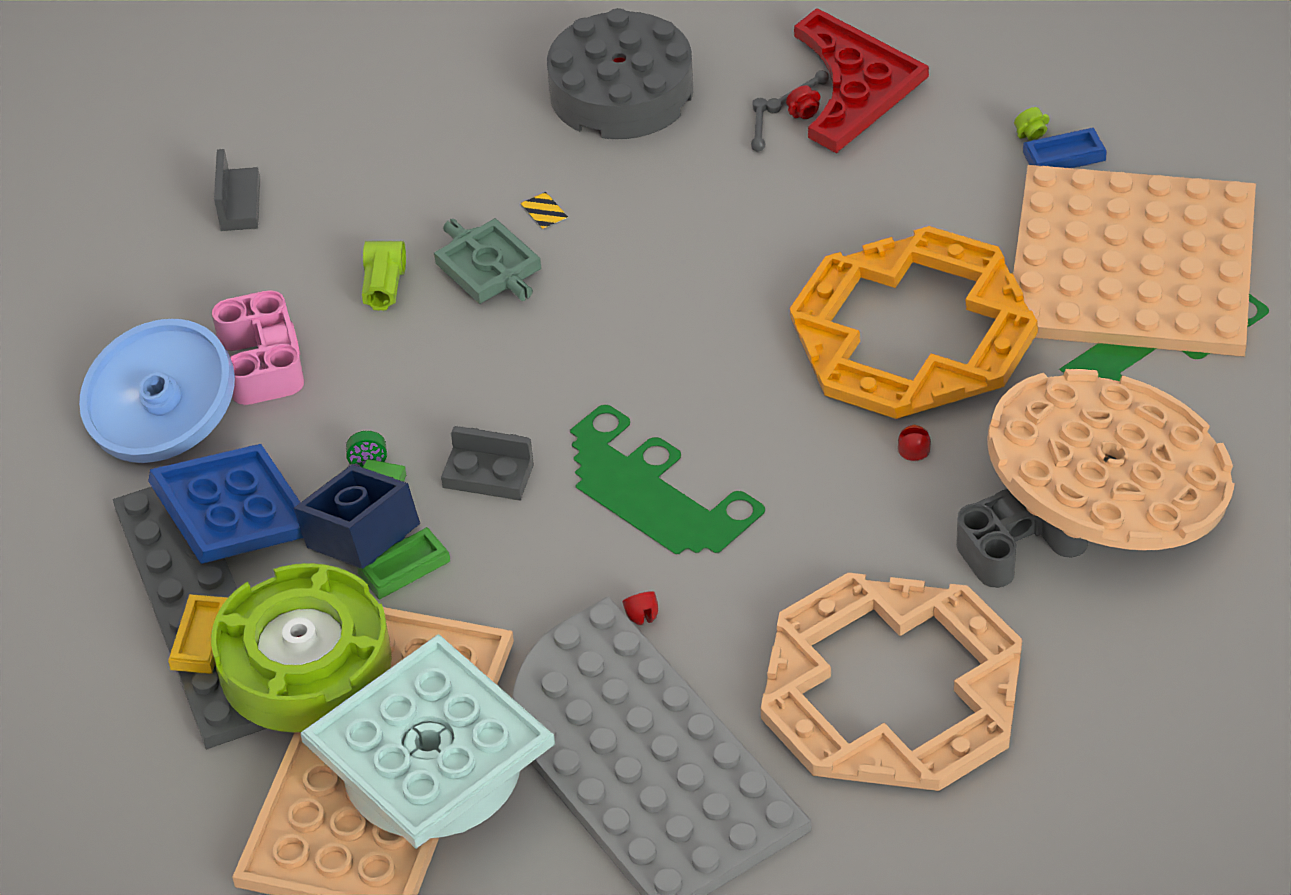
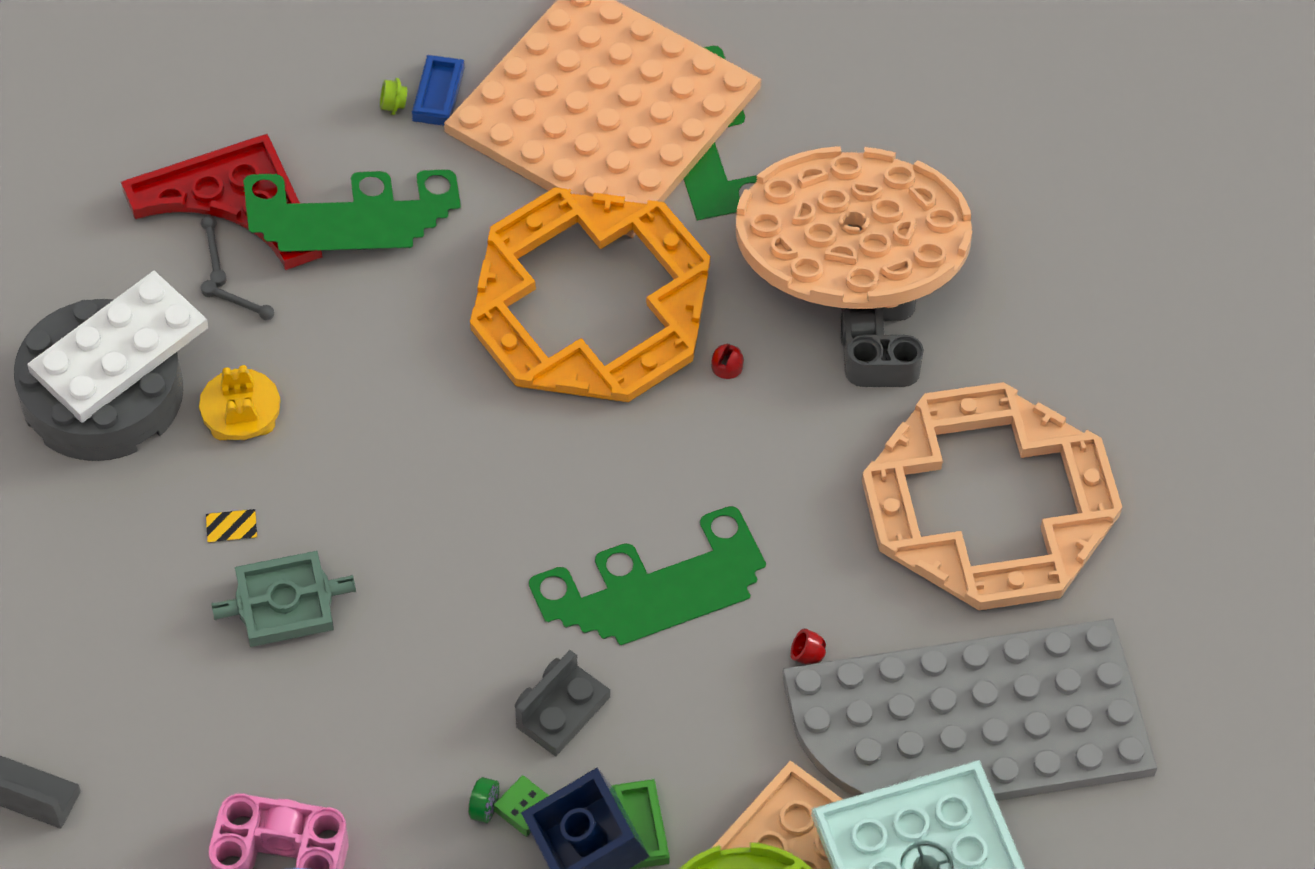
camera: 70 degrees left, 10 degrees up
(382, 267) = (232, 691): lime piece -> none
(639, 55) = (117, 346): none -> white plate
(657, 164) = (239, 404): none -> yellow plate
(803, 102) = (241, 251): red plate -> none
(879, 156) = (360, 224): none -> green piece

